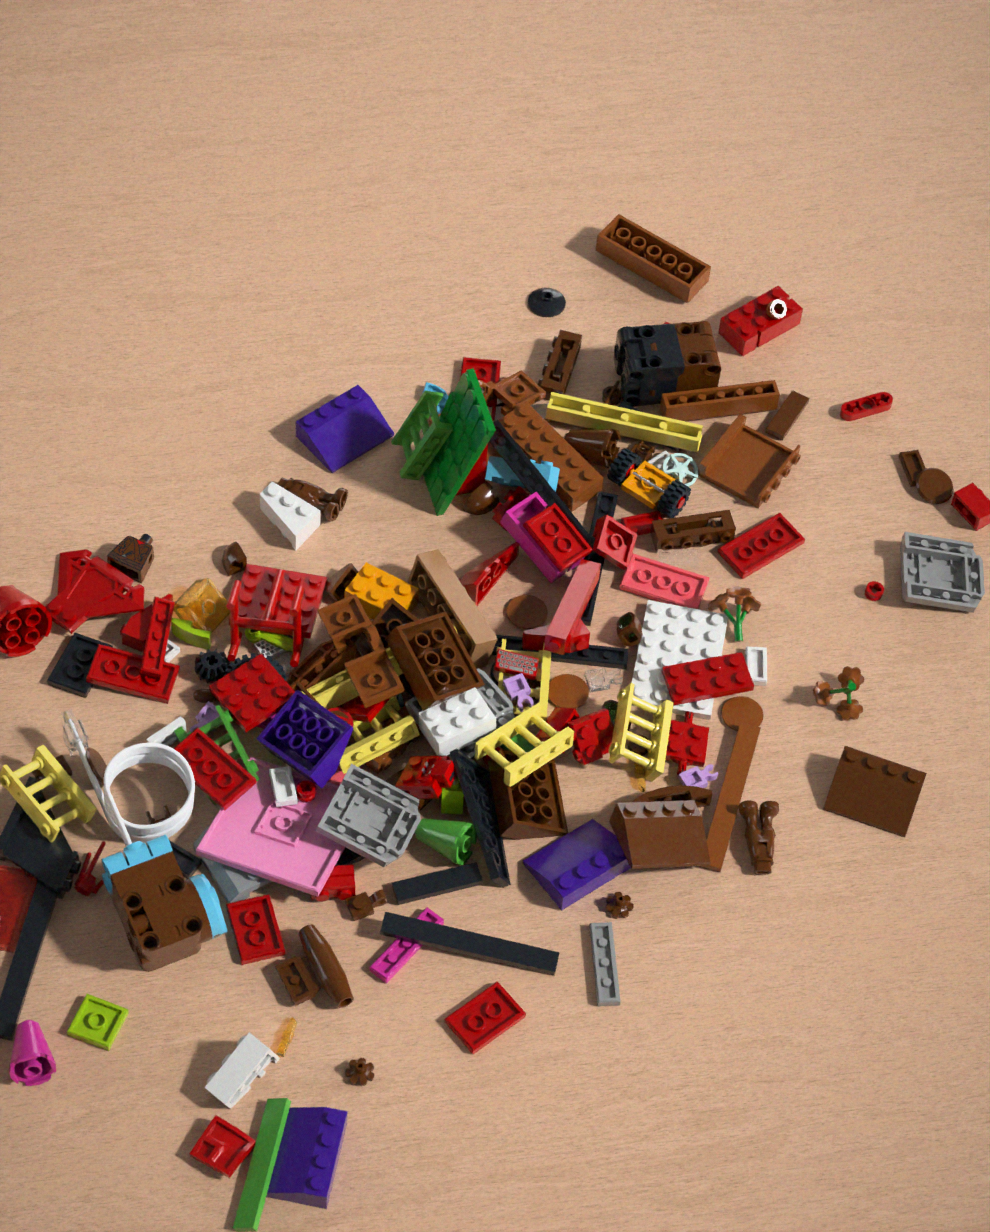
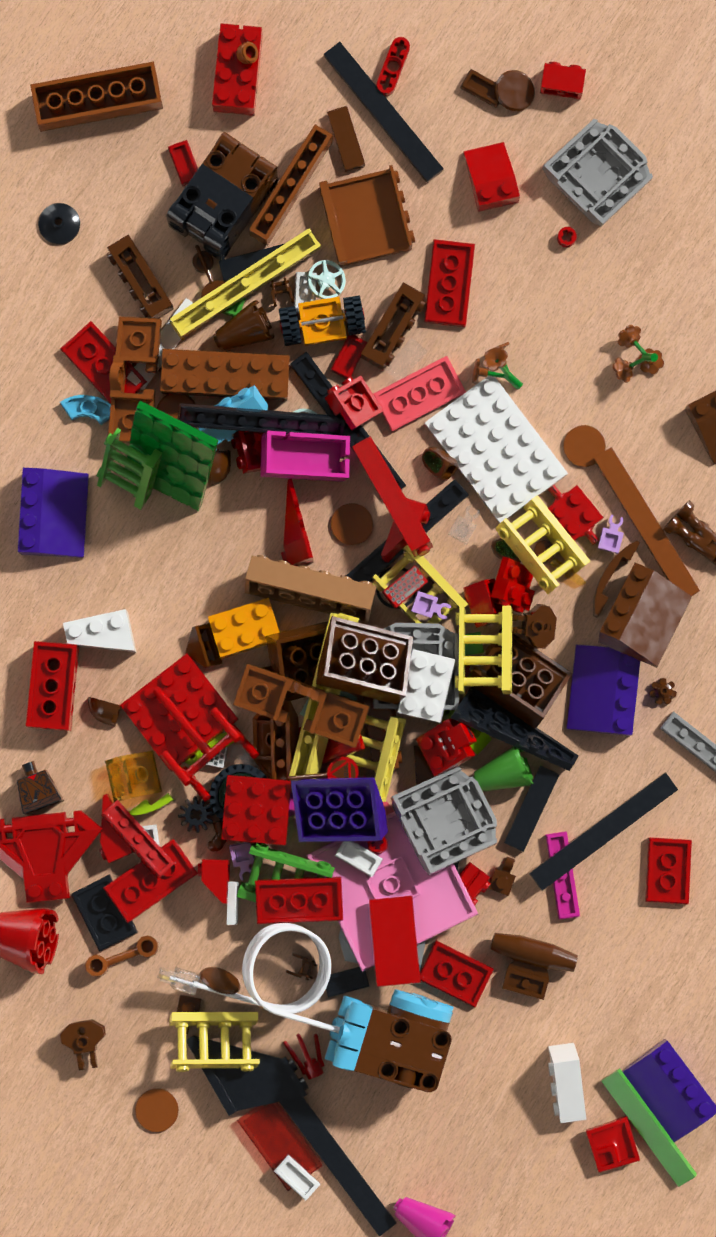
camera: 45 degrees left, 30 degrees up
(35, 687) = (146, 946): none -> dark orange piece
(97, 1022) = (434, 1150): lime tile -> none
(177, 701) = (215, 876): none -> red slope
(219, 510) = (40, 678): none -> red brick
(240, 851) = (394, 941): none -> red tile
(286, 1037) = (562, 1025): clear yellow piece -> none
(314, 494) = (94, 599): reddish brown piece -> none
(360, 1072) = (629, 996): reddish brown plant -> none
(557, 537) = (321, 450): red tile -> none
(568, 691) = (451, 559): dark orange piece -> none
(578, 777) = (534, 623): none -> reddish brown hinge
(707, 678) = (538, 448): red plate -> none
(757, 664) = (552, 394): white tile -> none
(830, 424) = (383, 112): none -> black tile
(859, 516) = (491, 177): none -> red slope

